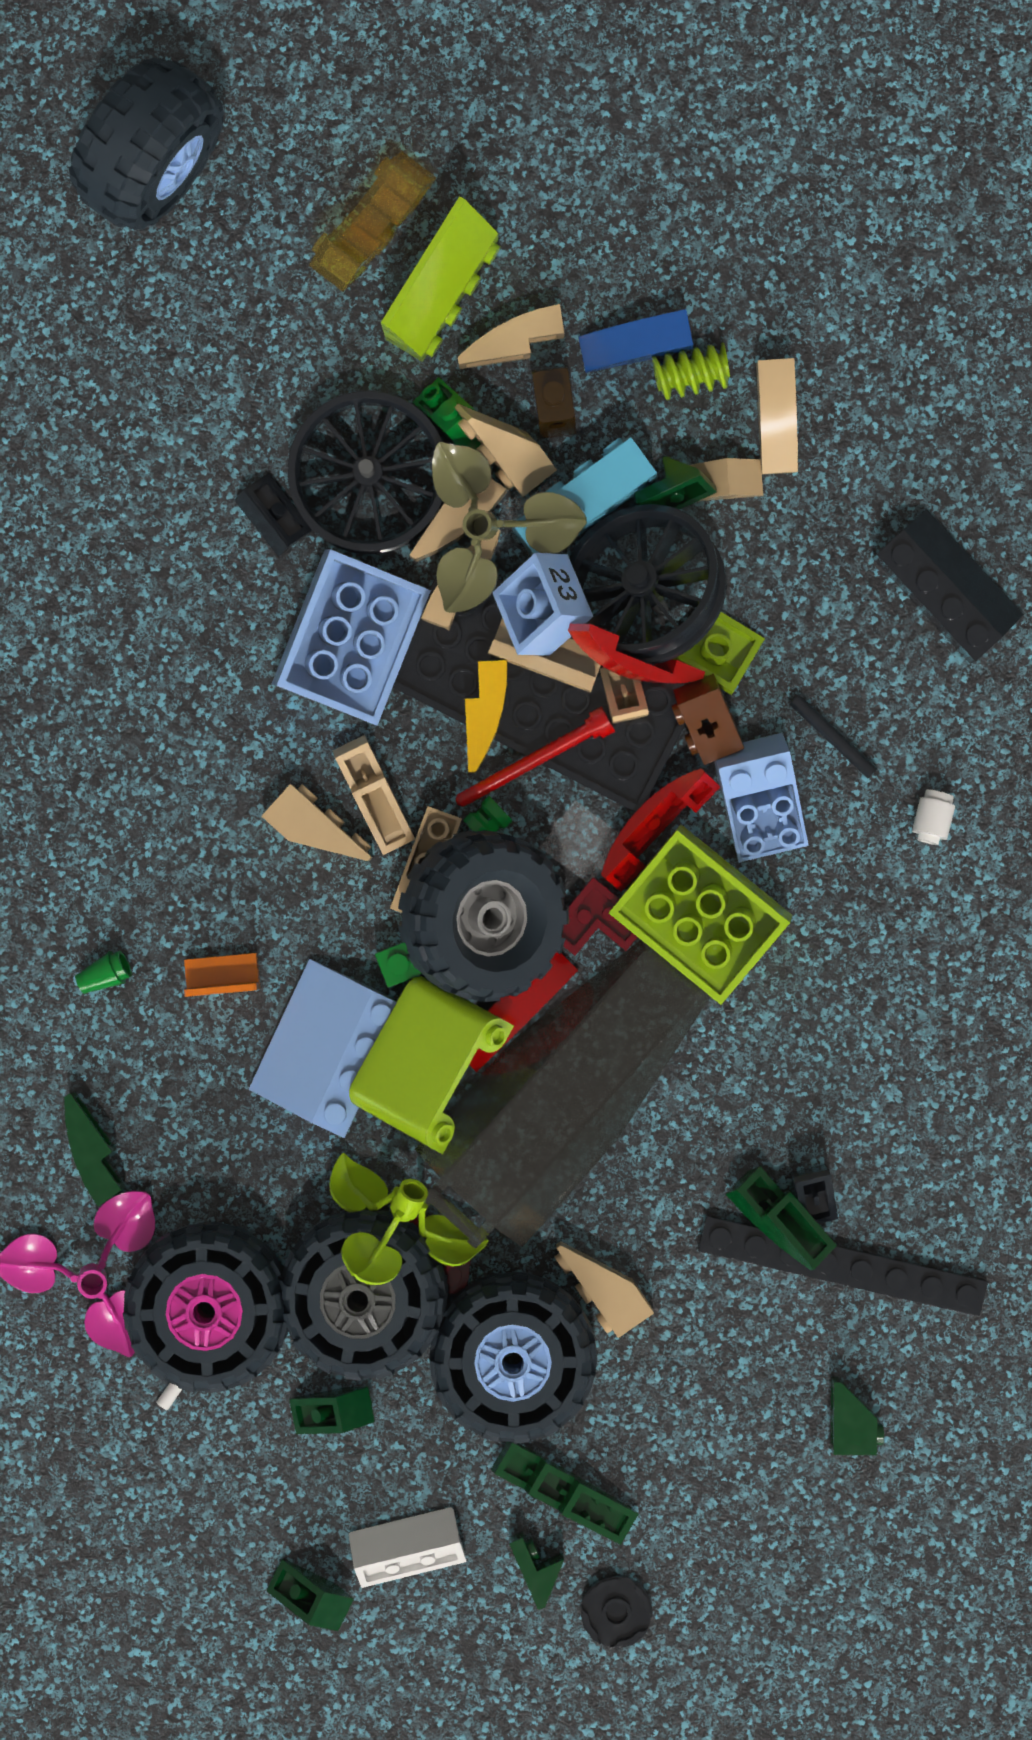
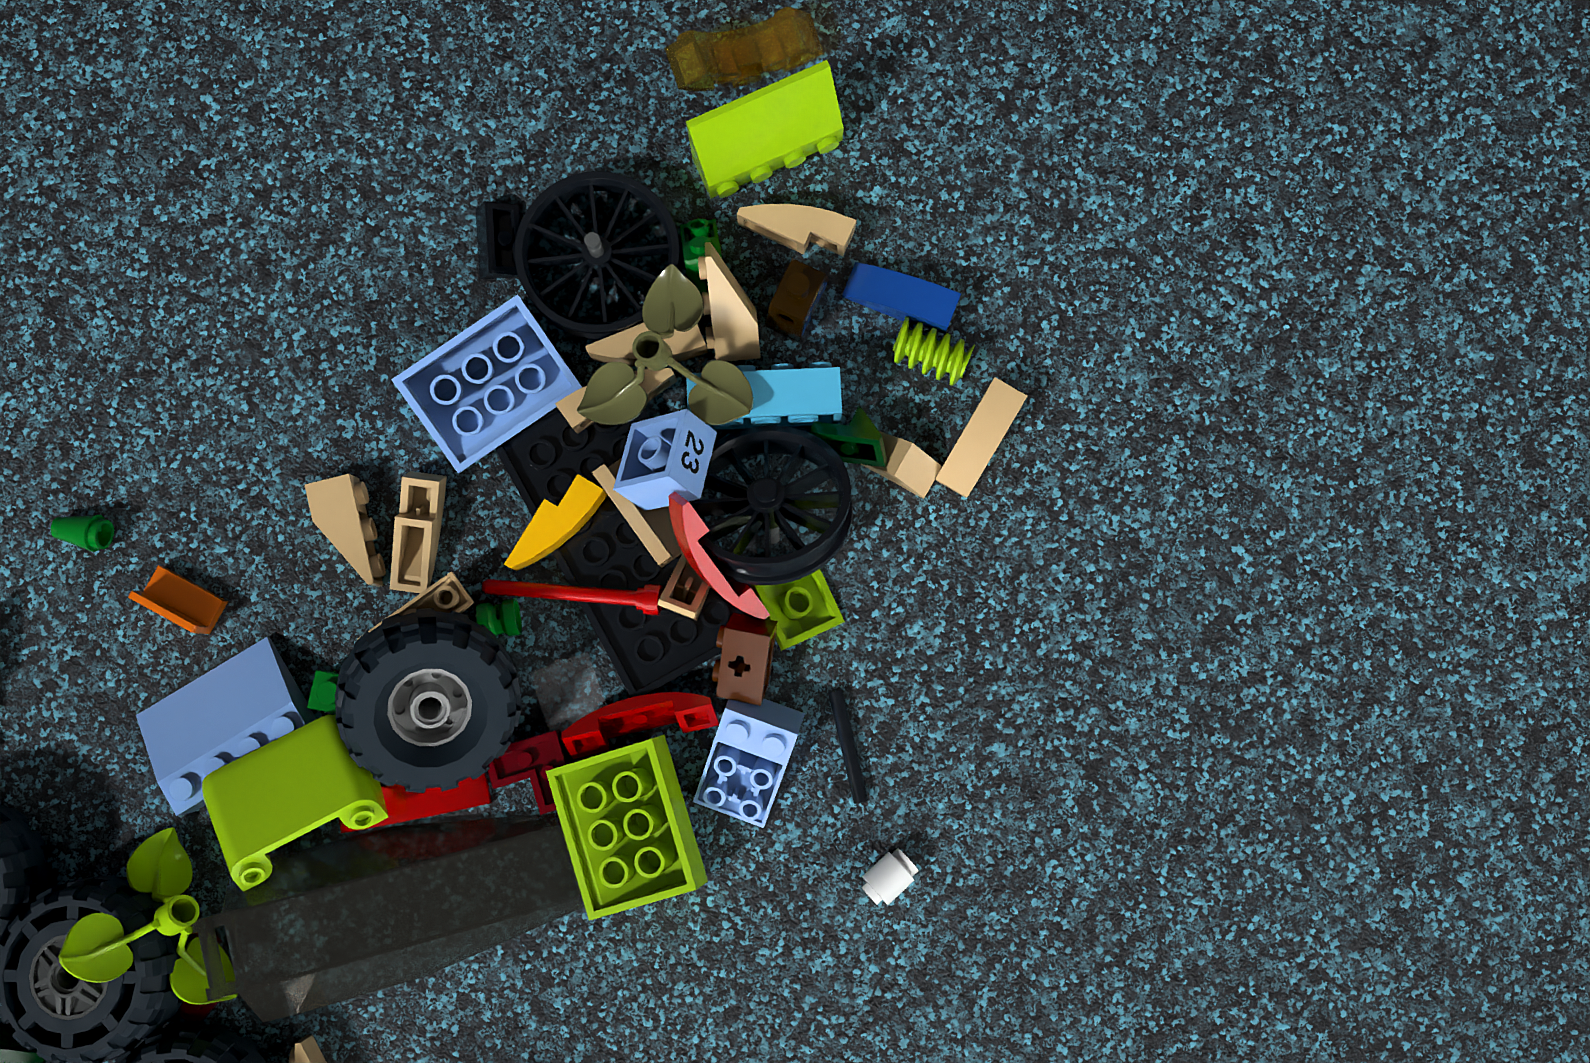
camera: 35 degrees right, 5 degrees down
(948, 586) = (1033, 683): black slope -> none

